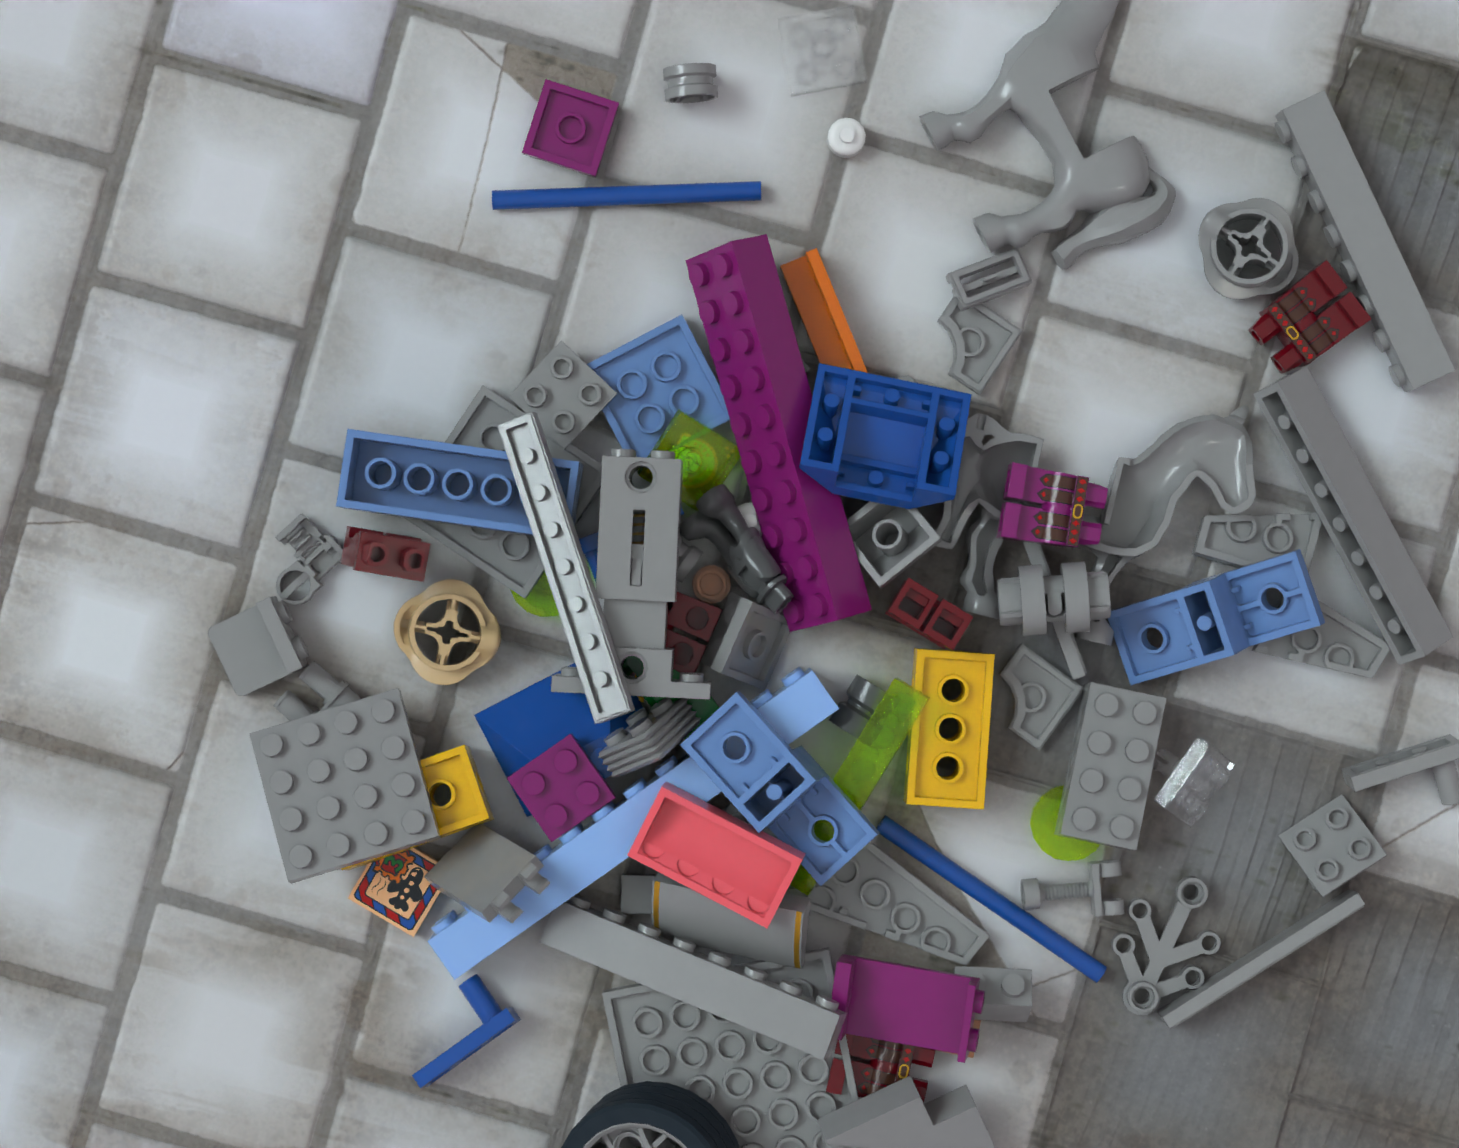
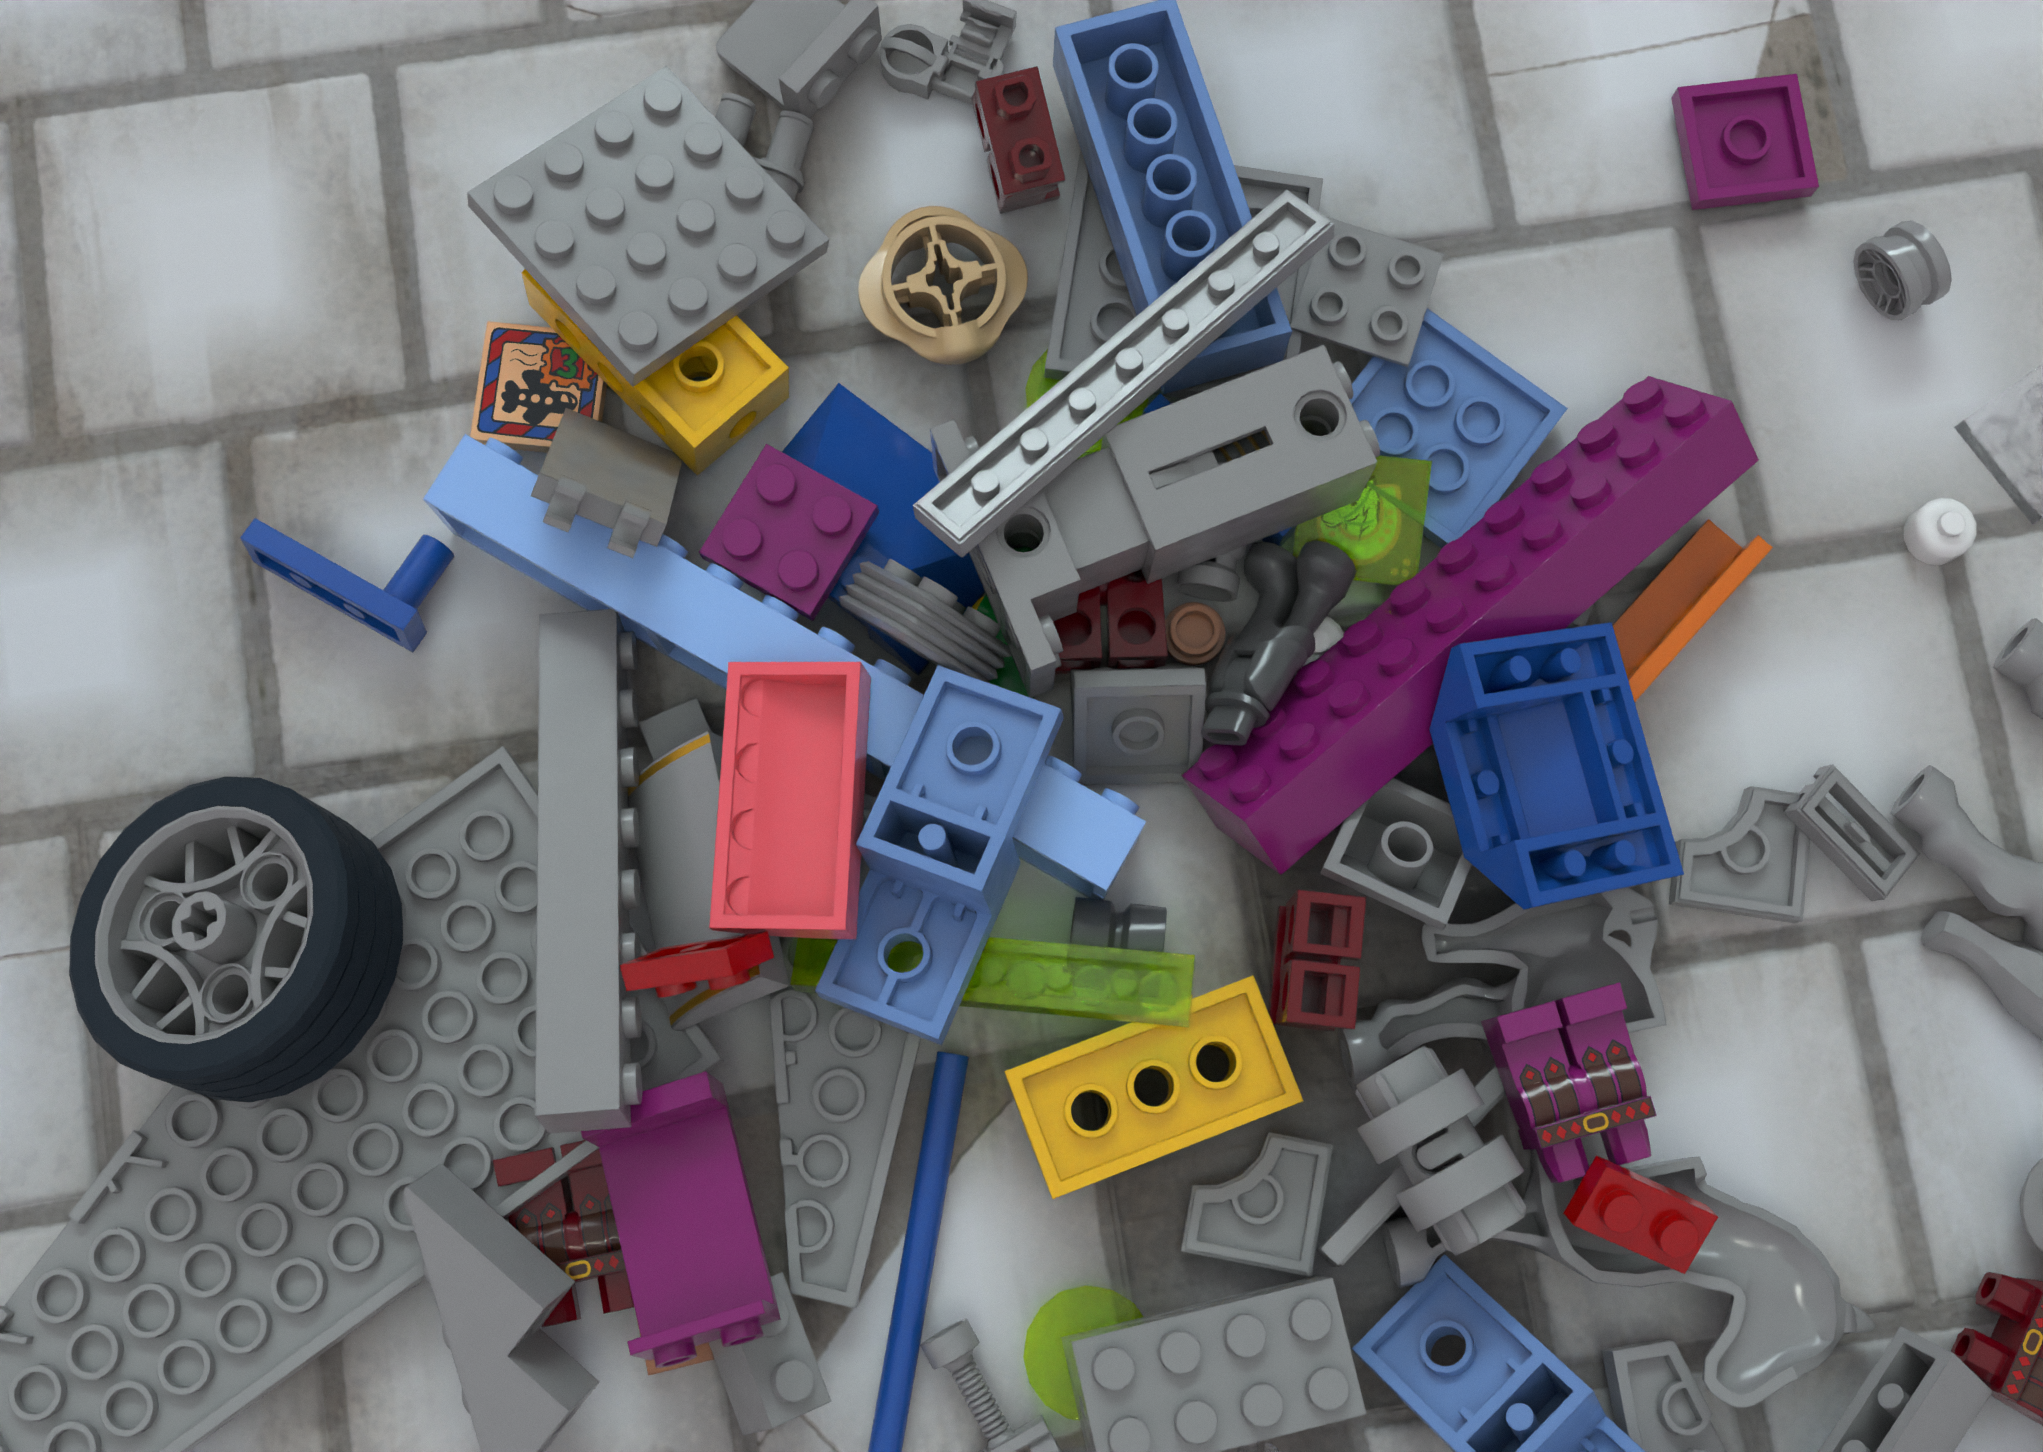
camera: 60 degrees right, 10 degrees down
(626, 195) = (1692, 264): blue piece -> none
(779, 945) = (678, 967): none -> red plate
(1134, 509) = (1640, 1214): none -> red plate

